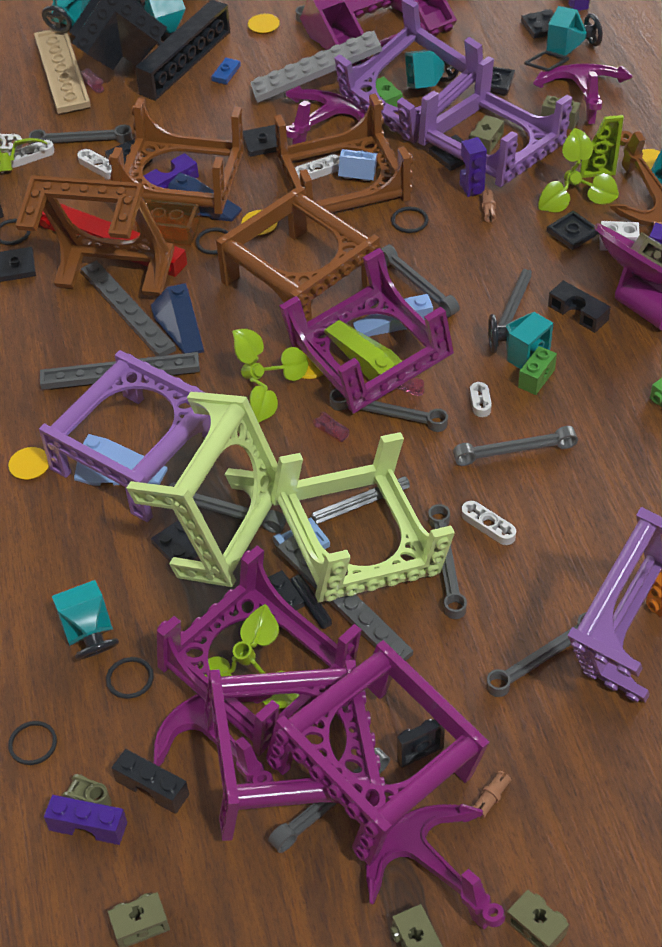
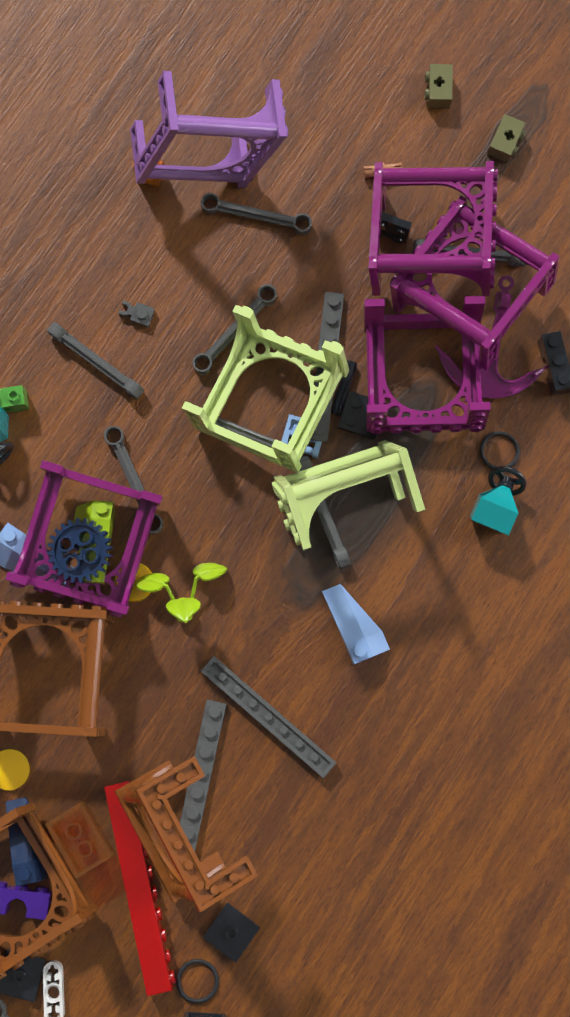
camera: 135 degrees left, 30 degrees up
(28, 463) = (406, 697): yellow piece -> none
(125, 376) = (325, 675): medium lavender arch -> none
(174, 543) = (374, 517): black plate -> none
(176, 316) = (176, 728): dark blue wedge -> none
(207, 231) = (44, 788): black piece -> none
(257, 629) = (401, 384): lime plant -> none
(332, 427) = (185, 503): clear pink bar -> none
(372, 330) = (75, 533): none -> dark blue gear
(410, 841) = (442, 195): magenta piece -> none
(413, 386) = (98, 494): clear pink bar -> none
(477, 399) = (63, 419): white beam -> none
(485, 514) = (173, 315): white beam -> none
(530, 505) = (139, 314): none -> dark grey plate

